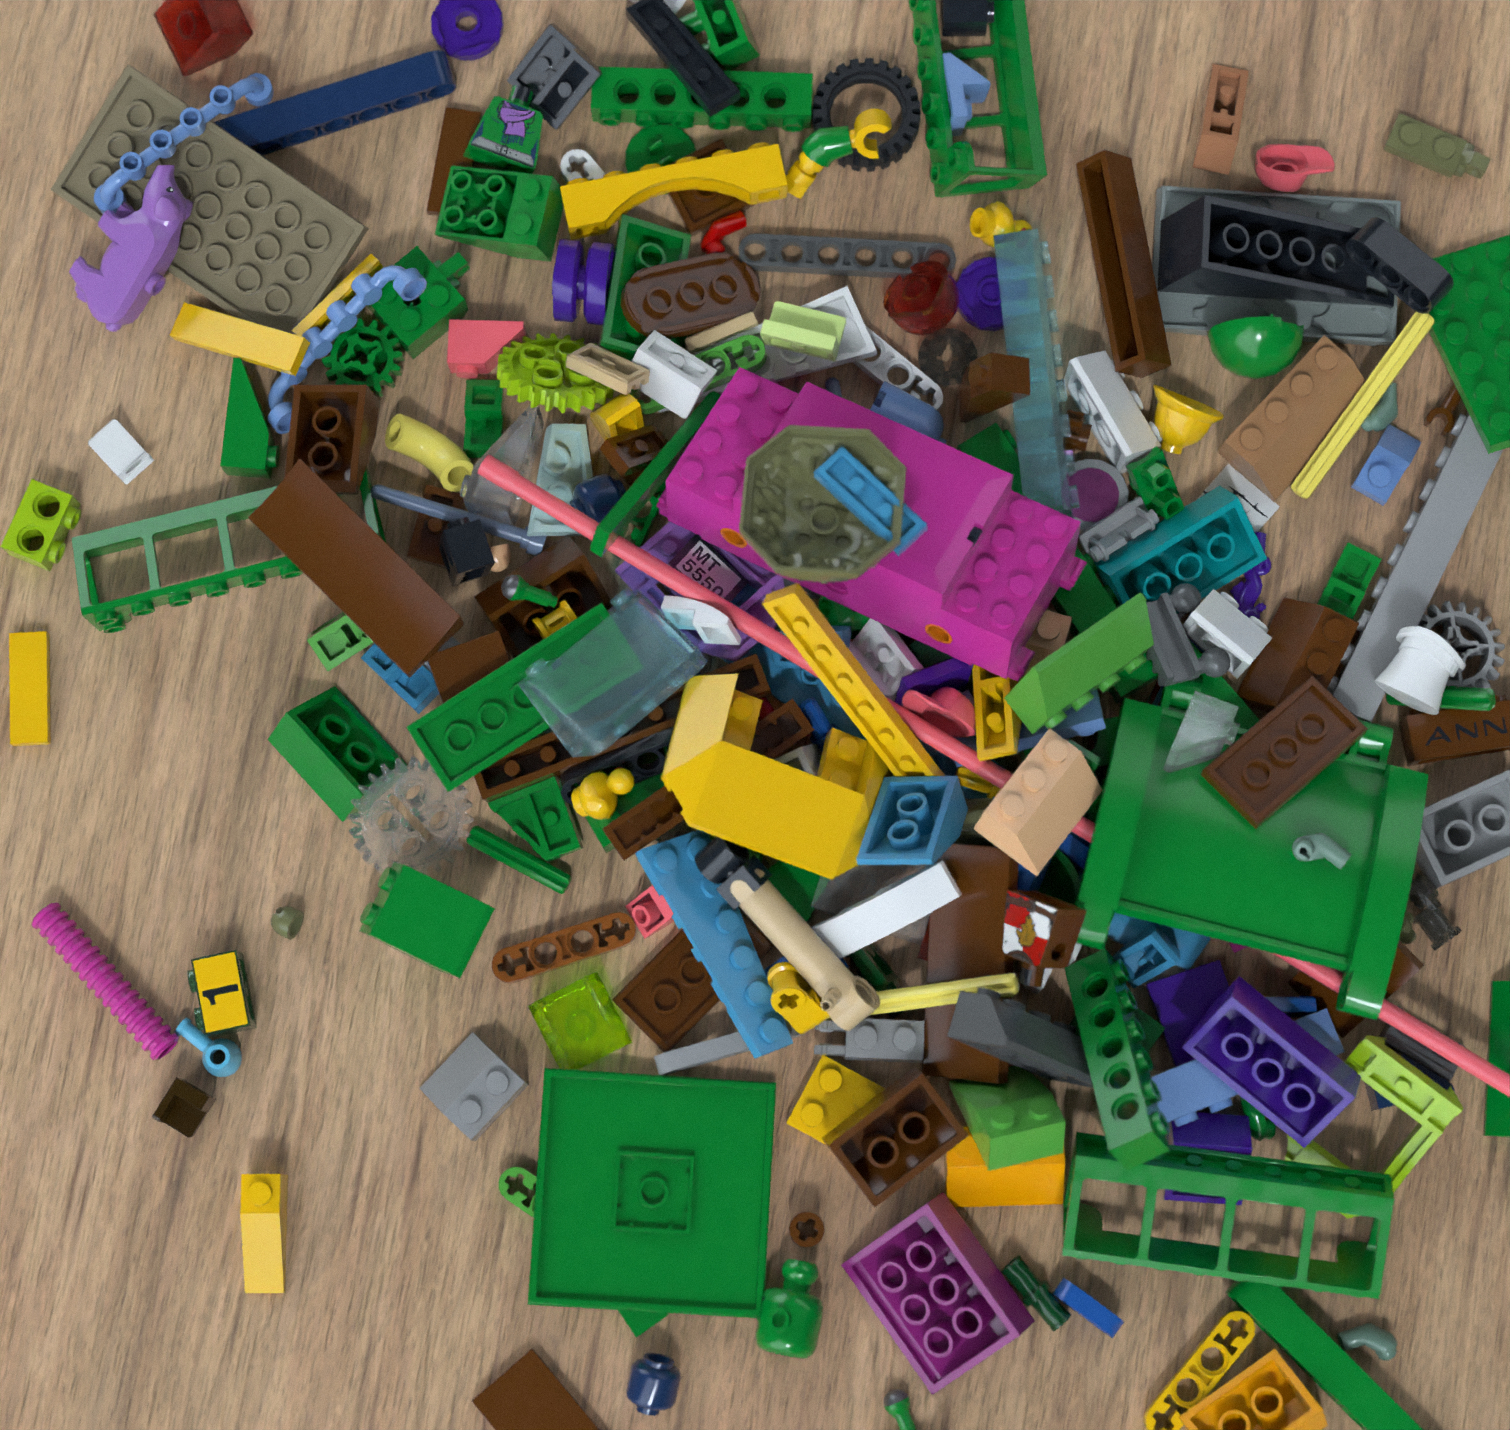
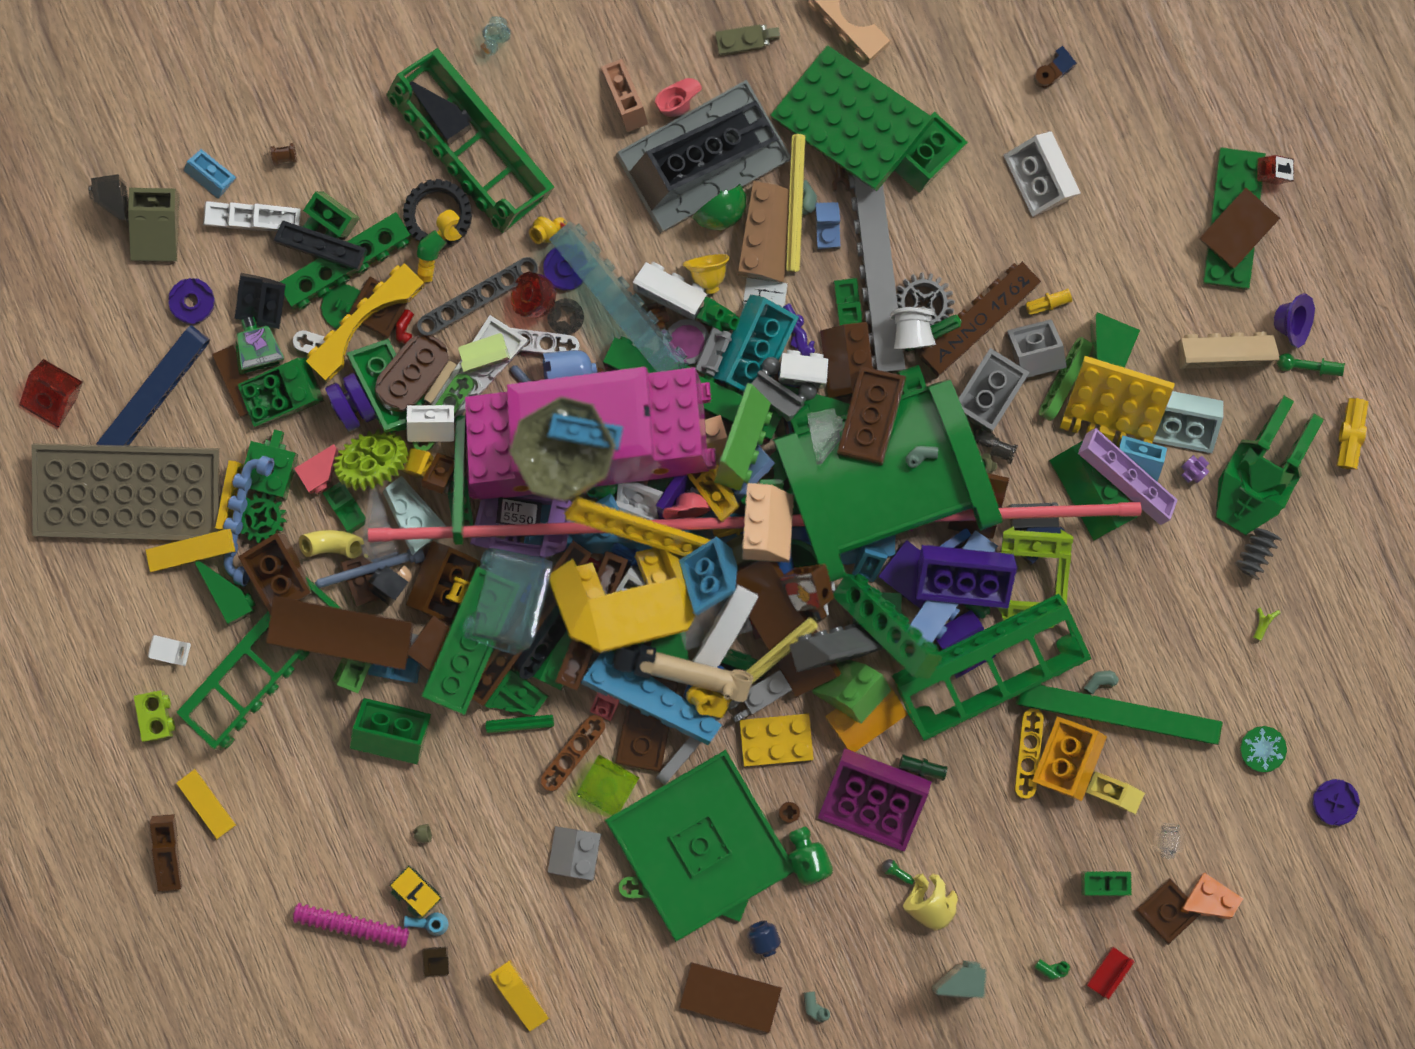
camera: 40 degrees left, 5 degrees up
(139, 252) = (107, 541): medium lavender animal -> none
(193, 122) = (107, 412): medium blue bar -> none
(385, 842) = (447, 761): clear gear -> none
(425, 919) = (495, 786): green slope -> none
(516, 588) = (428, 587): green piece -> none
(597, 495) = (437, 511): dark blue head -> none
(598, 793) = (541, 664): yellow animal -> none
(607, 368) = (397, 442): tan tile -> none
(694, 615) = (538, 541): white slope -> none
(895, 1136) = (803, 737): reddish brown slope -> none
(963, 88) = (478, 167): medium blue slope -> none
(992, 384) = (601, 320): reddish brown slope -> none
(1088, 1307) = (953, 757): blue beam -> none
(1123, 264) = (625, 209): reddish brown brick -> none
(1399, 265) = (768, 119): black beam -> none

